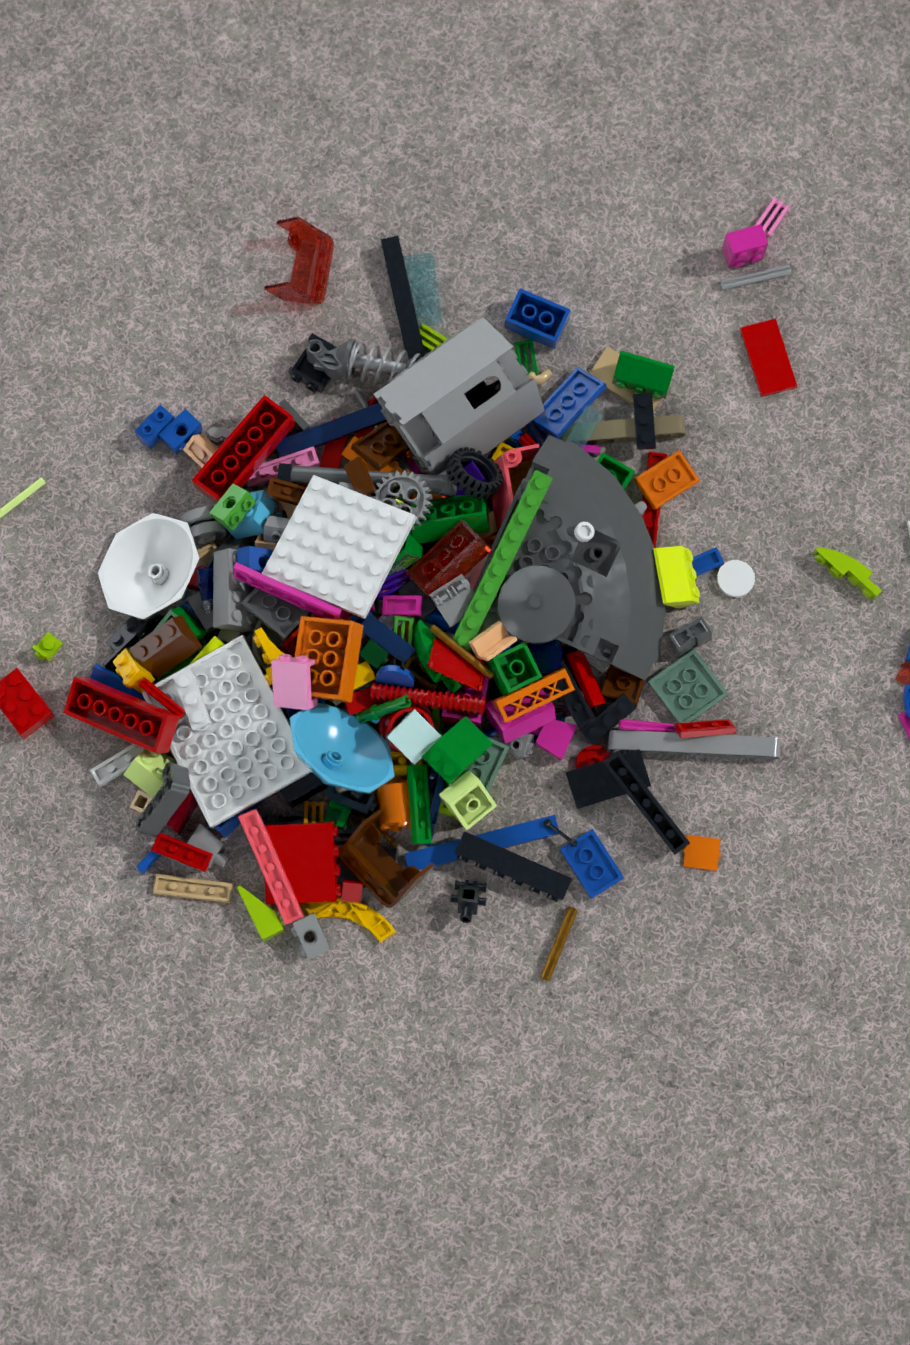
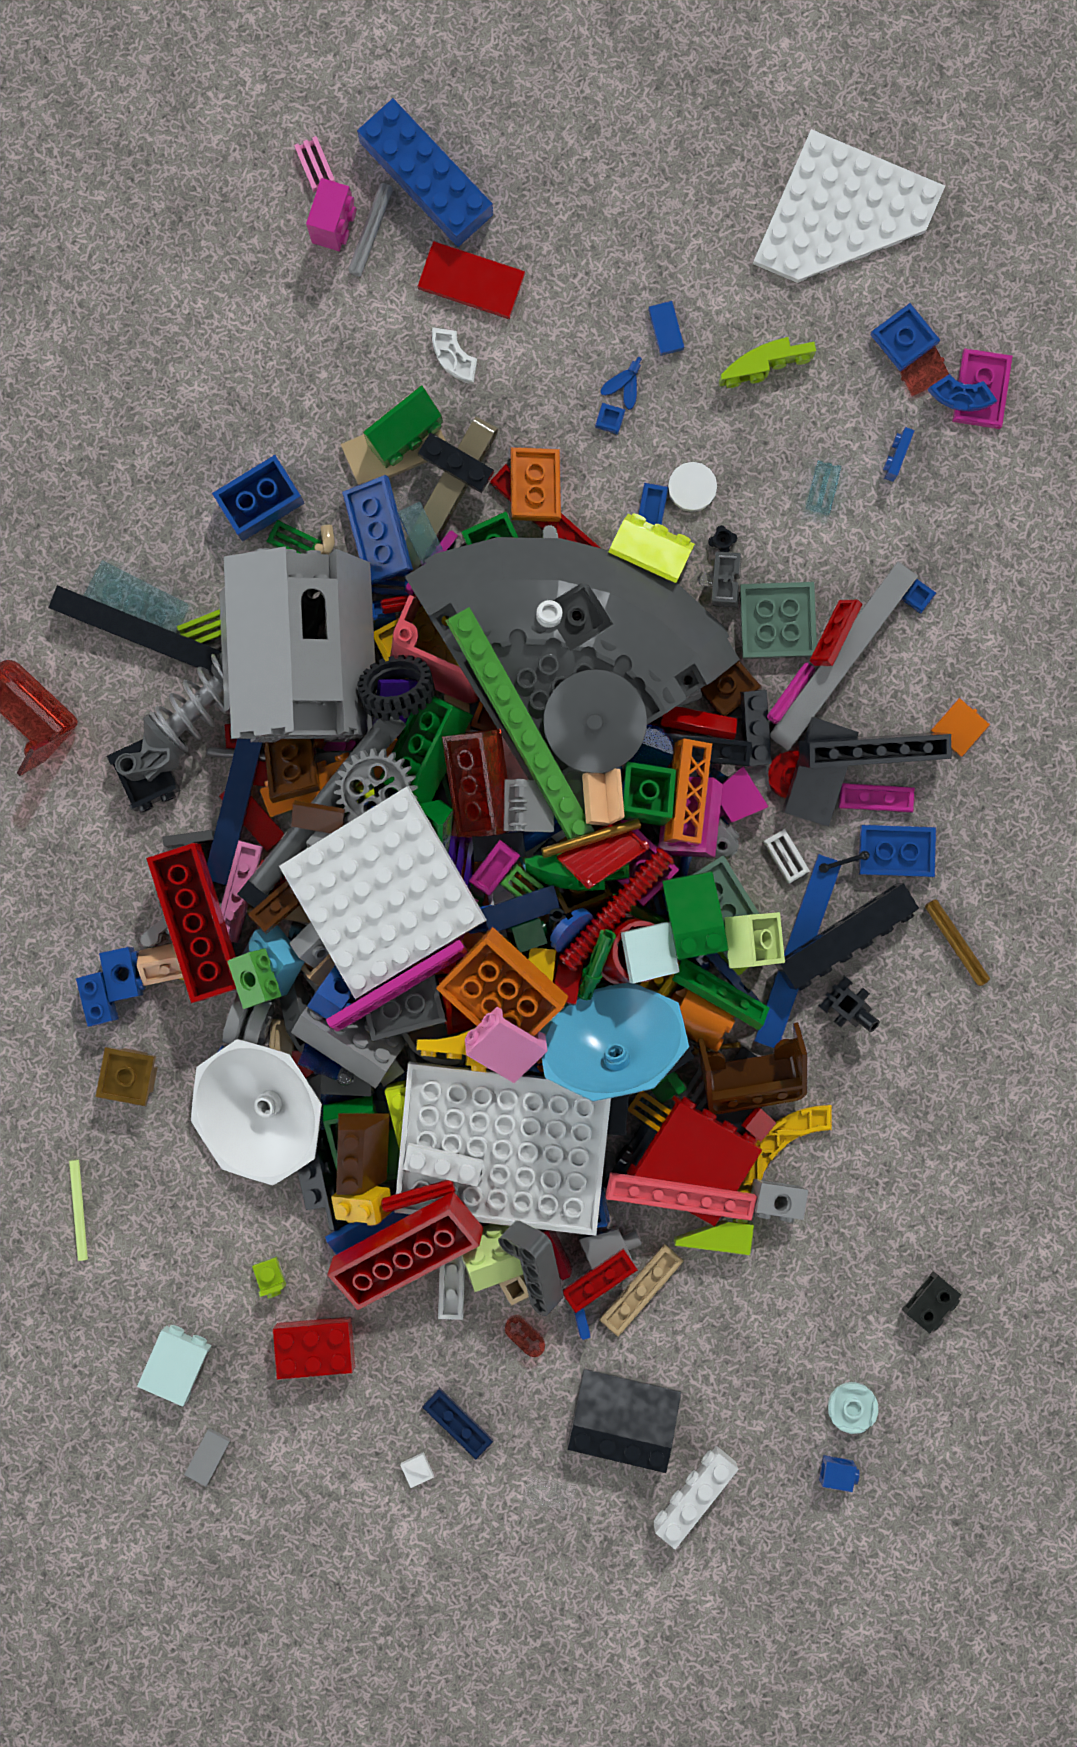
camera: 50 degrees left, 10 degrees up
(29, 827) = (457, 1423): none -> dark blue tile
(80, 1011) = (695, 1497): none -> white brick
(100, 932) = (624, 1421): none -> black slope
(118, 475) = (126, 1076): none -> pearl gold panel
(118, 834) = (521, 1340): none -> clear red beam
(155, 1096) = (838, 1473): none -> blue brick
(205, 1078) = (846, 1402): none -> light aqua tile
(309, 1082) = (932, 1302): none -> pearl dark grey brick
(532, 810) = (775, 838): none -> white tile
(617, 828) = (876, 798): none -> dark pink tile
(711, 378) = (452, 357): none -> white tile
(715, 615) = (722, 532): none -> black plate
(742, 499) = (610, 418): none -> blue tile
(768, 768) = (918, 596): none -> blue tile
(774, 492) = (627, 380): none -> blue piece
(809, 656) = (828, 467): none -> clear light blue tile
(814, 285) = (425, 172): none -> blue brick
(825, 496) = (666, 328): none -> blue tile
(856, 691) = (894, 463): none -> blue plate

